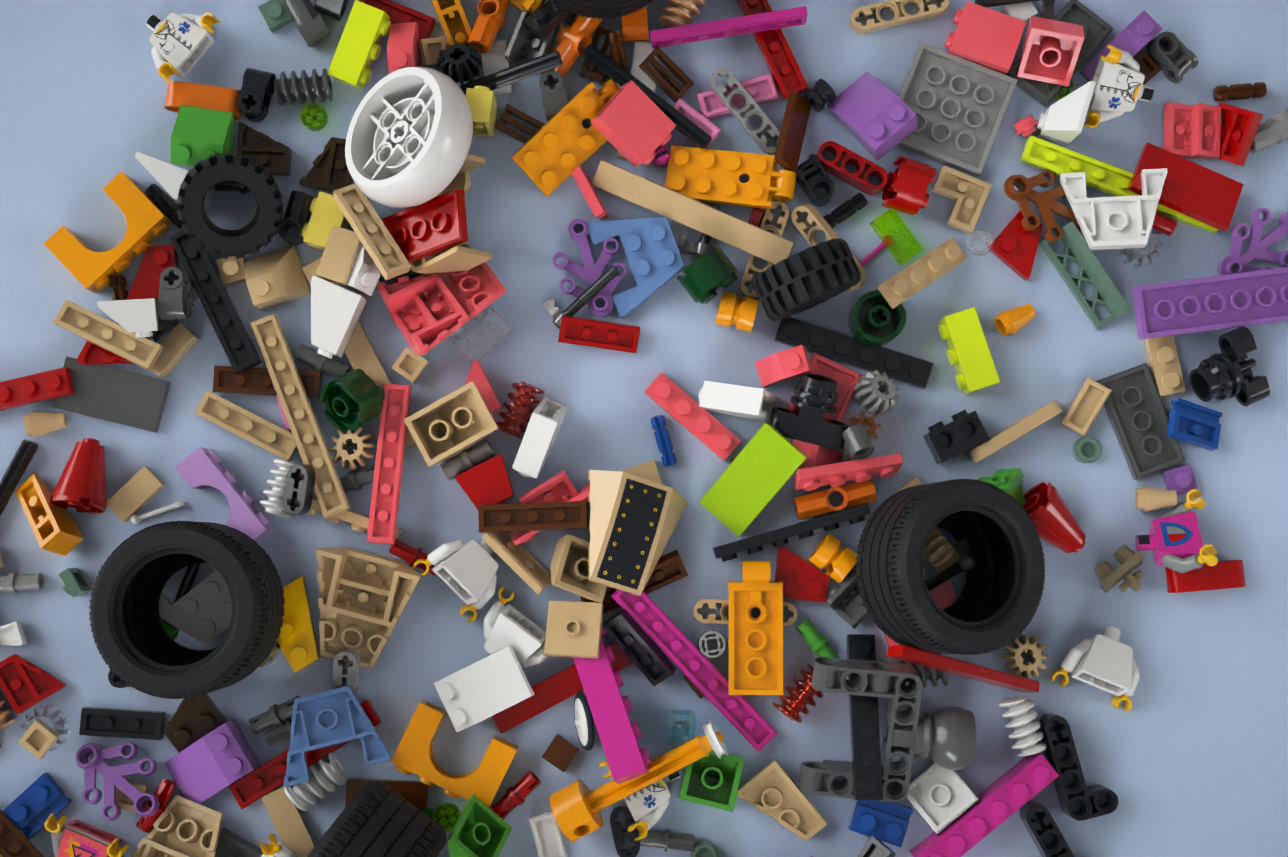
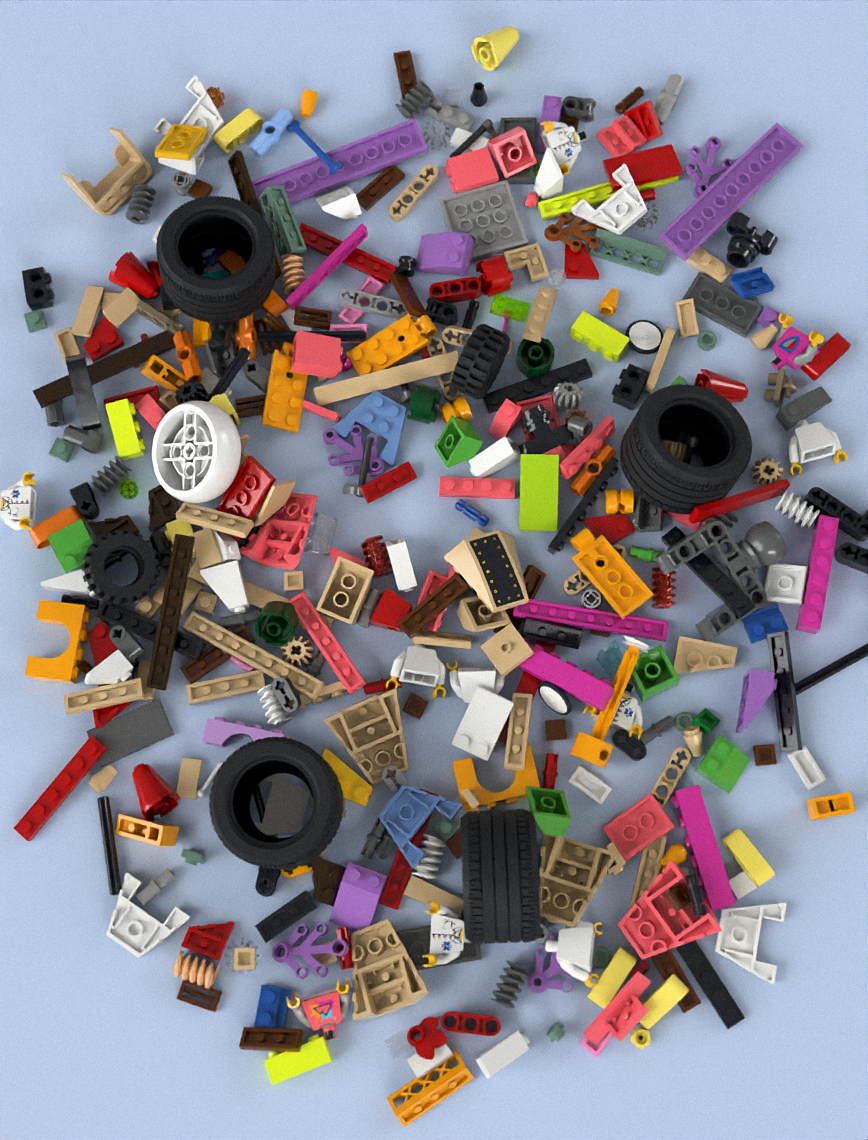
camera: 30 degrees left, 10 degrees down
(246, 298) = (170, 612): none -> dark brown tile
(298, 313) = (206, 603): none -> tan plate
(357, 765) = (446, 828): none -> sand green plate
(404, 761) = (471, 798): none -> tan plate
(432, 606) = (415, 706): none -> reddish brown tile
(513, 728) = (518, 732): none -> tan plate
(710, 350) = (458, 442): none -> bright green slope
(1020, 390) = (644, 336): none -> white wheel
(1129, 614) = (802, 407): none -> dark grey slope

